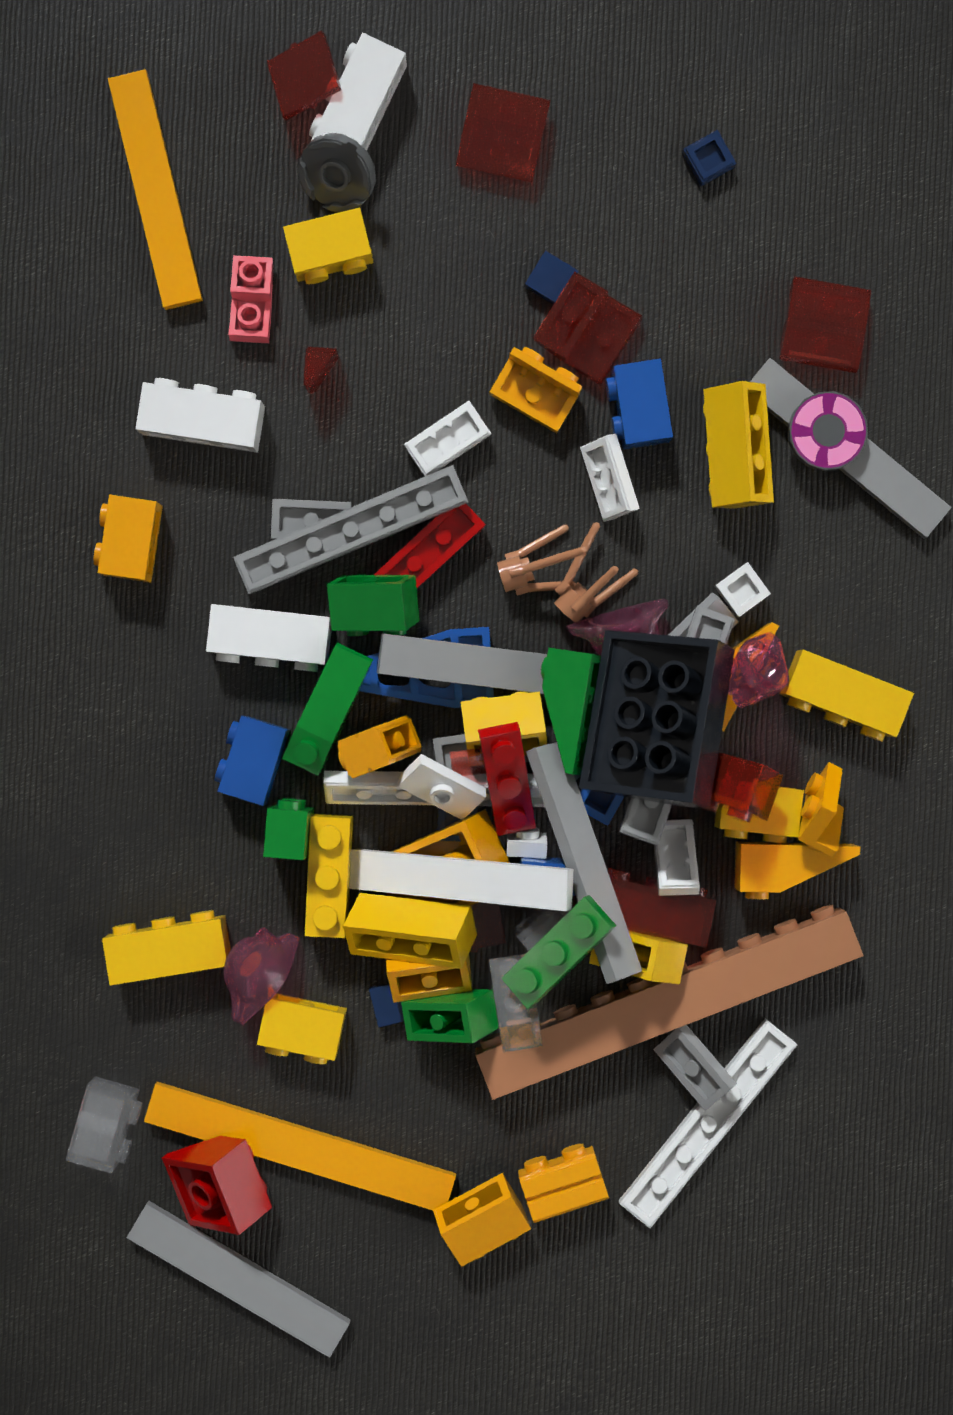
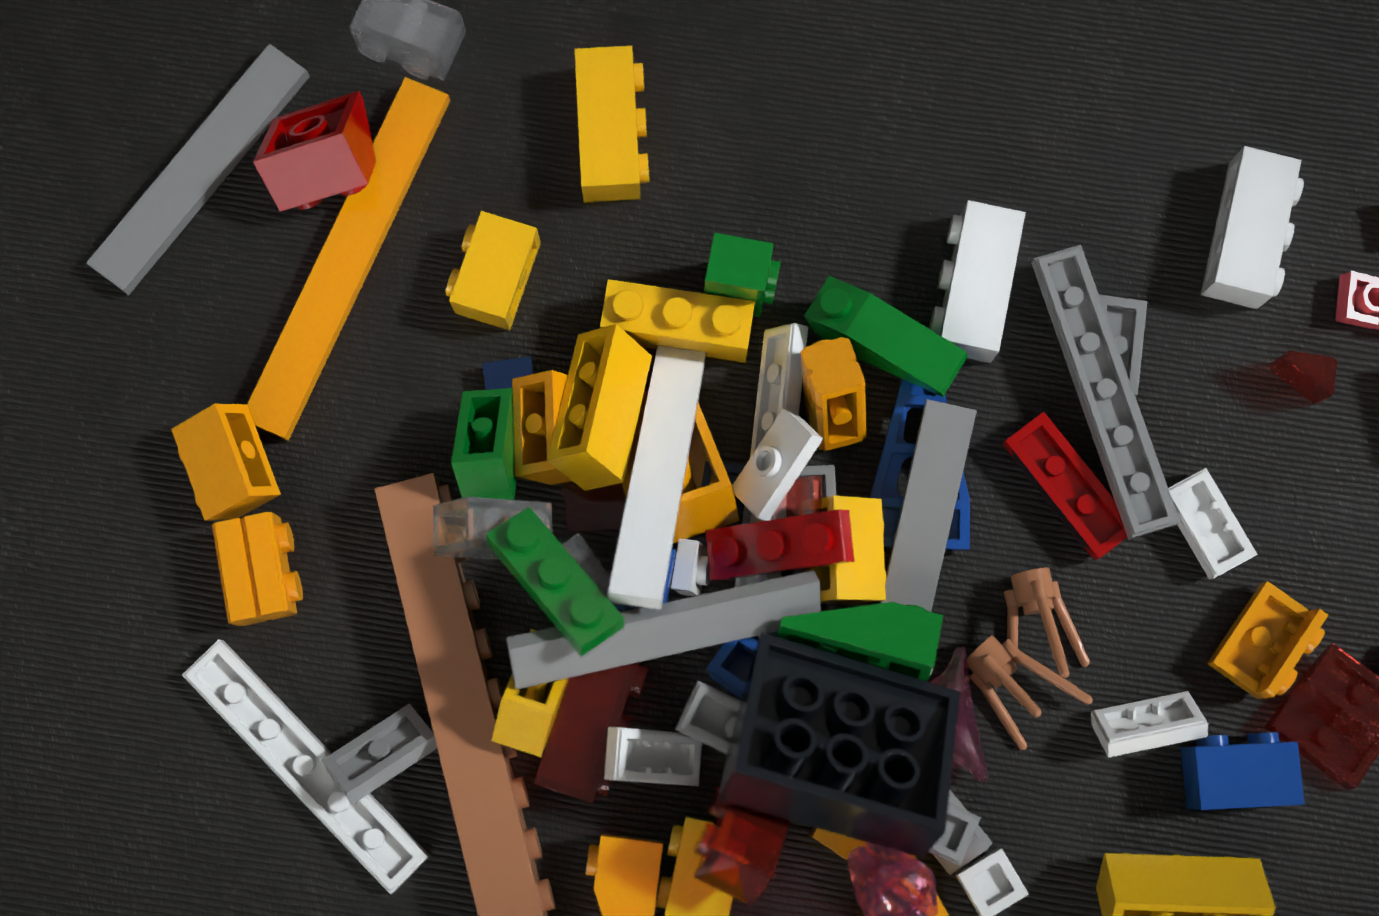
camera: 90 degrees right, 10 degrees down
(128, 538) = (1108, 130): light orange brick -> none
(252, 760) = (826, 243): blue brick -> none
(257, 971) = (573, 221): clear pink hat -> none
(373, 604) = (1010, 407): green brick -> none

